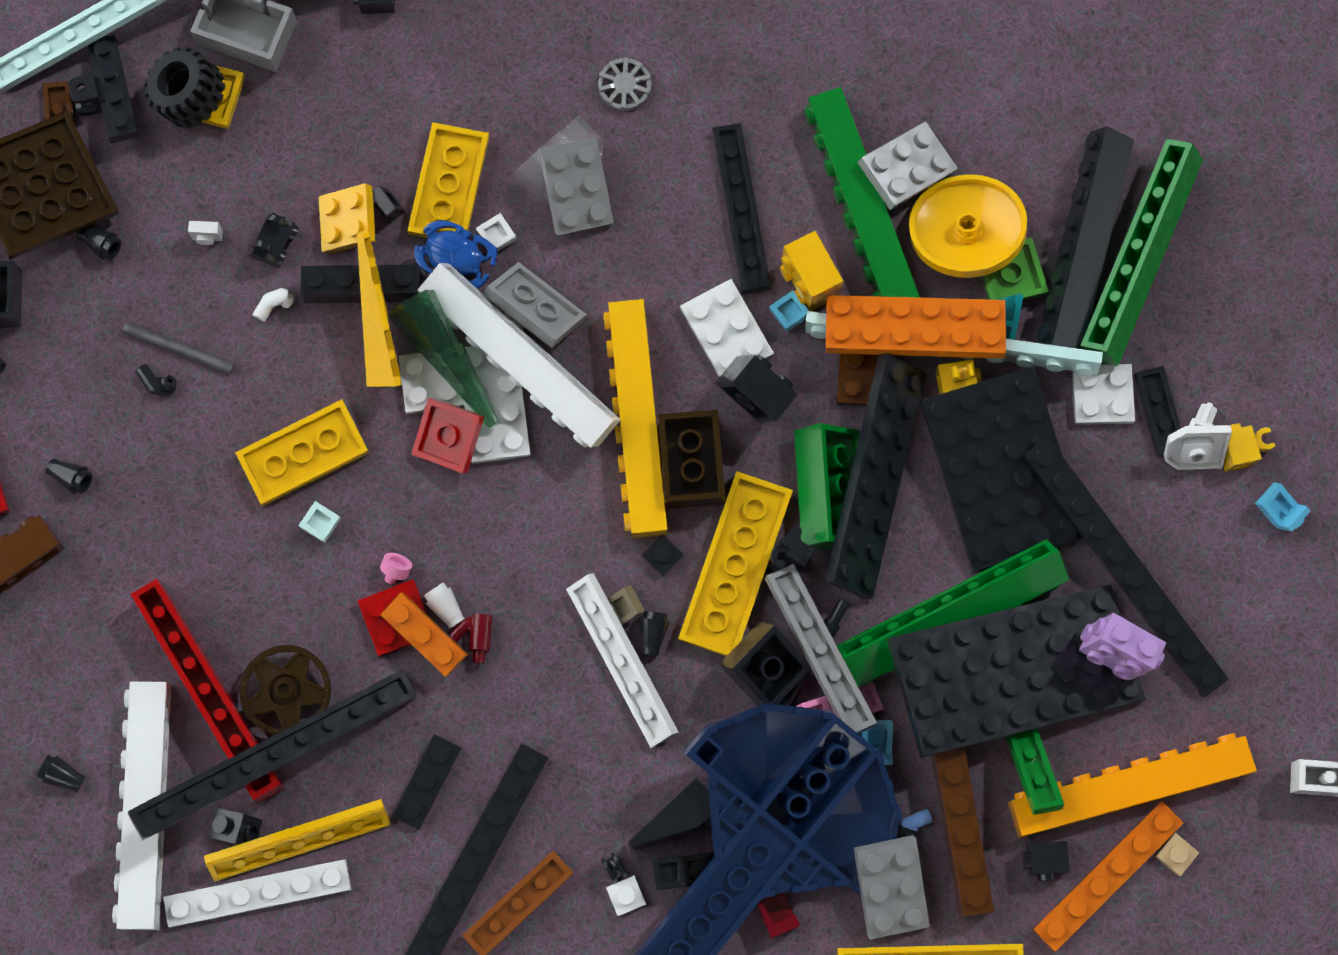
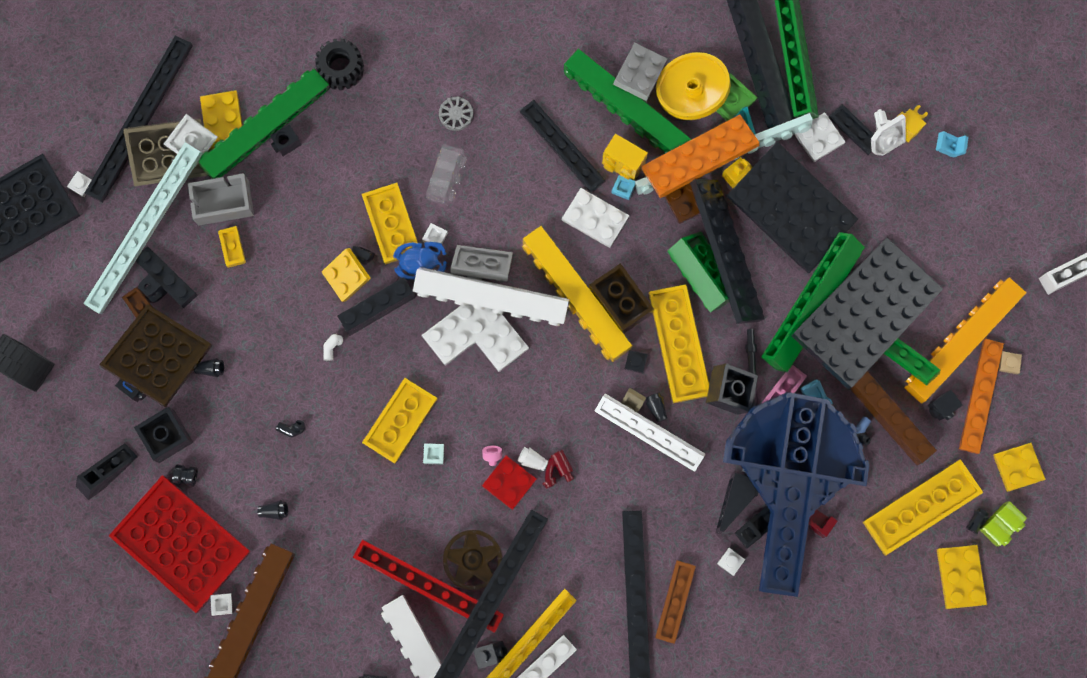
camera: 30 degrees left, 0 degrees up
(178, 348) = (292, 402): flat silver bar -> none
(184, 87) = (195, 252): black tyre -> none
(205, 232) = (268, 328): white plate -> none
(272, 240) = (310, 310): black piece -> none
(379, 350) = (408, 335): yellow wedge -> none
(424, 634) = (532, 482): orange plate -> none
(426, 782) = (582, 564): black plate -> none
(430, 332) = (432, 310): clear green wedge -> none
(447, 435) = (477, 363): red plate -> none
(576, 185) = (464, 184): light grey plate -> none
(613, 867) = (715, 549): black bush -> none
(757, 387) = (634, 238): black brick -> none
(791, 551) = (707, 319): black piece -> none
(820, 649) = (756, 362): light grey plate -> none
(891, 887) = (873, 470): light grey plate -> none
(1122, 647) = (918, 266): lavender brick -> none
(1125, 567) = (889, 223): black plate -> none

